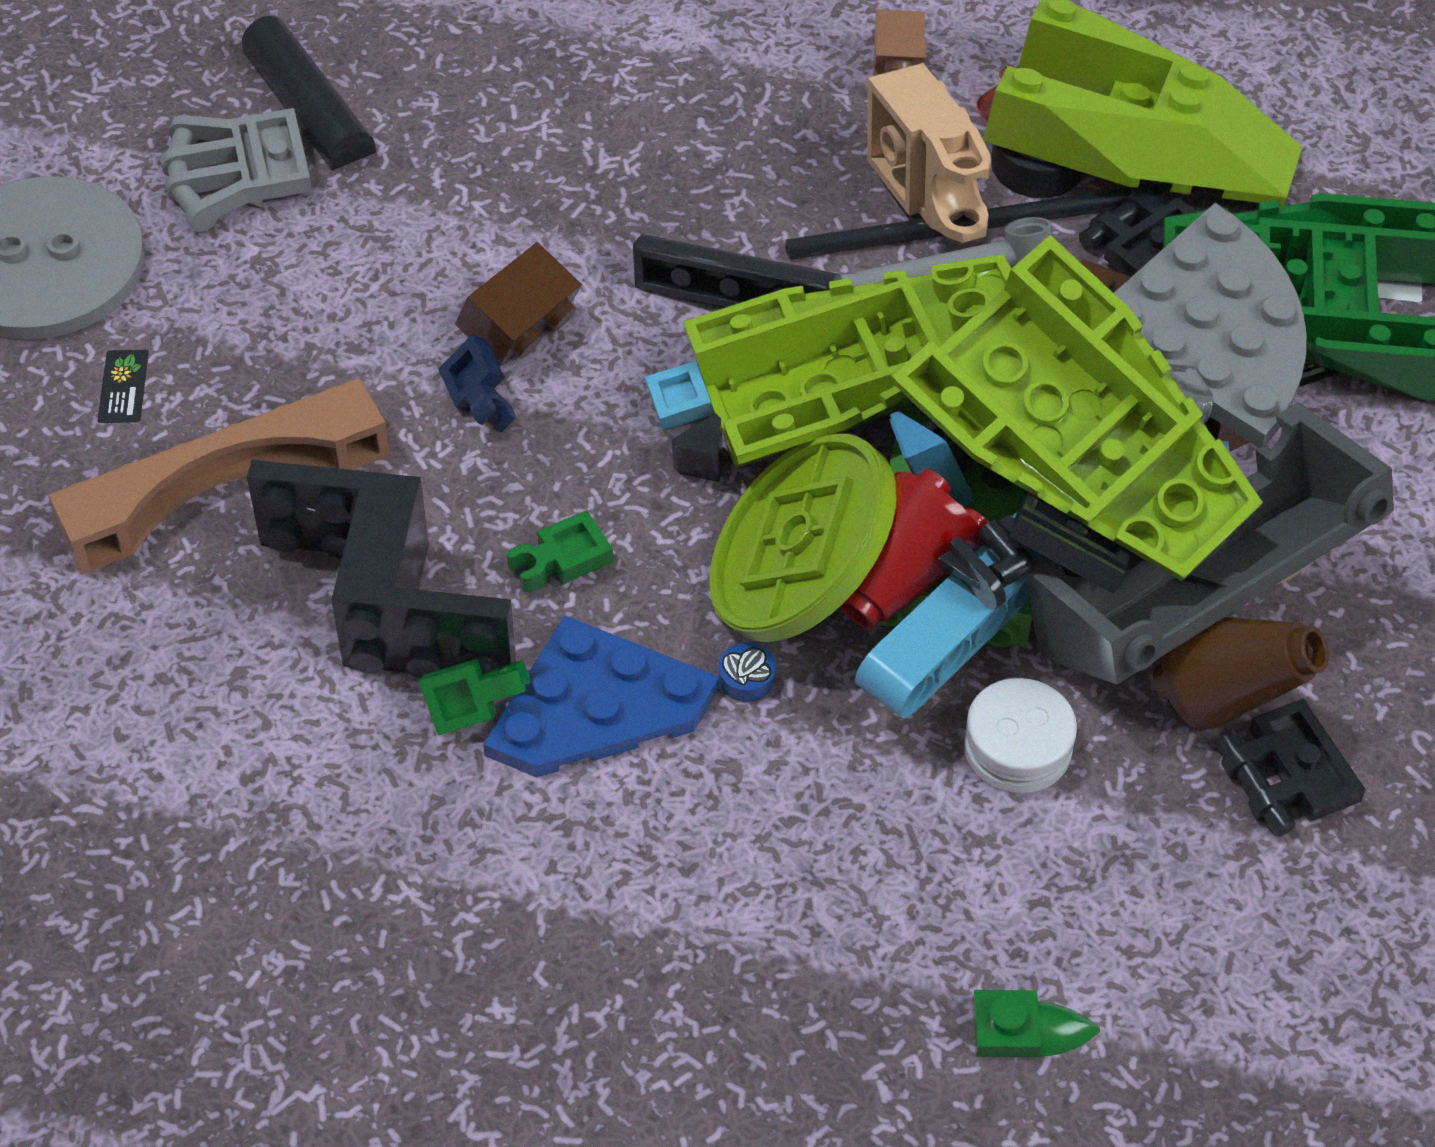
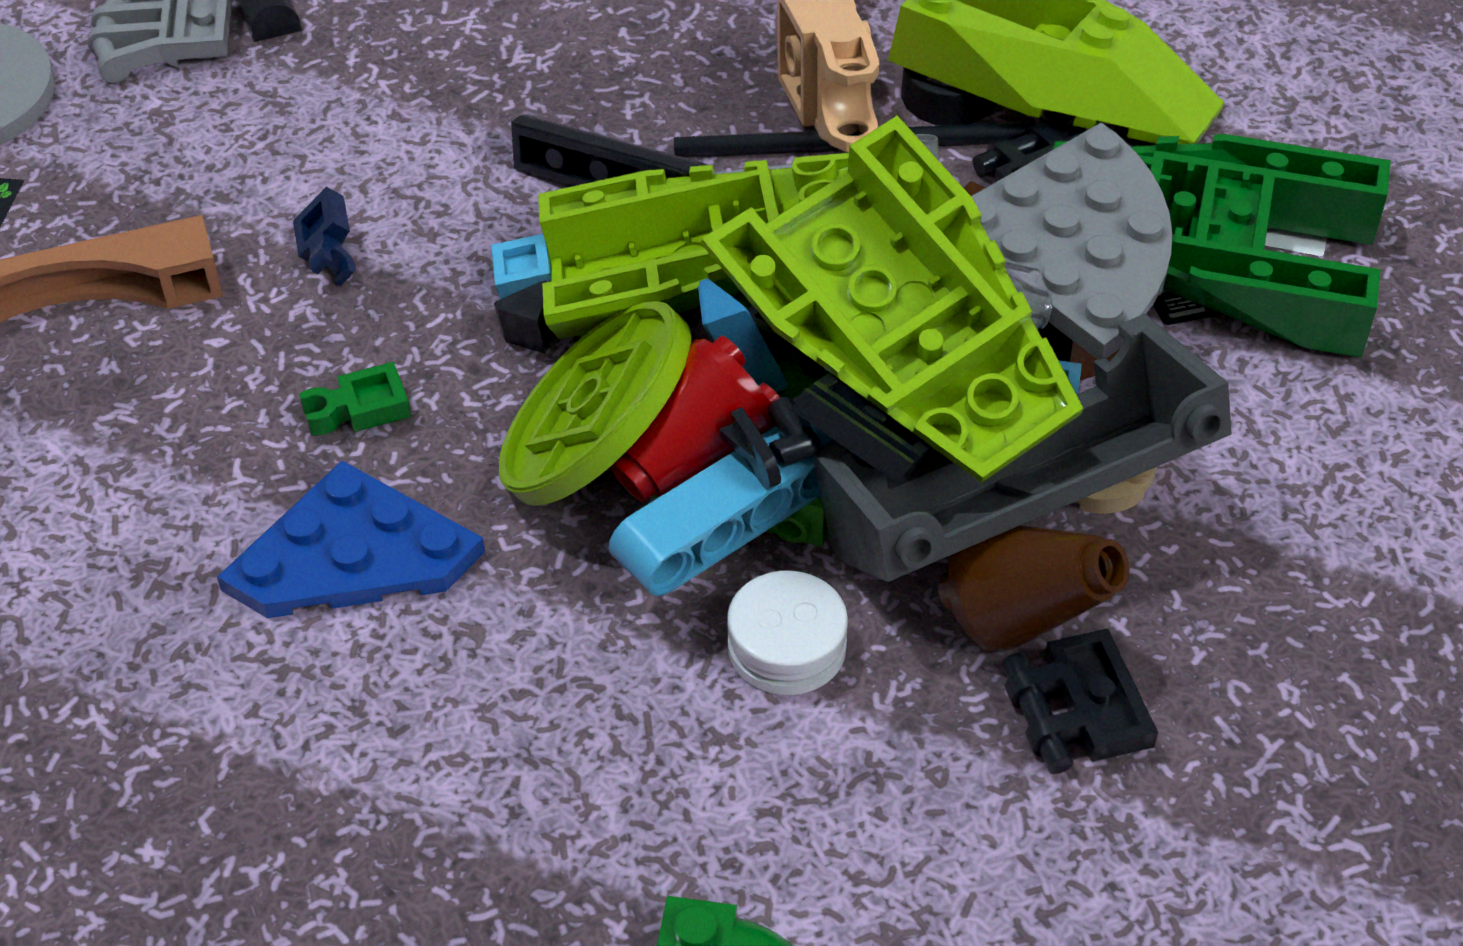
camera: 10 degrees right, 5 degrees down
(383, 543) = (160, 396): black bracket -> none
(465, 696) = (210, 524): green plate -> none
(520, 304) = (385, 166): reddish brown brick -> none
(747, 672) = (516, 537): tile -> none

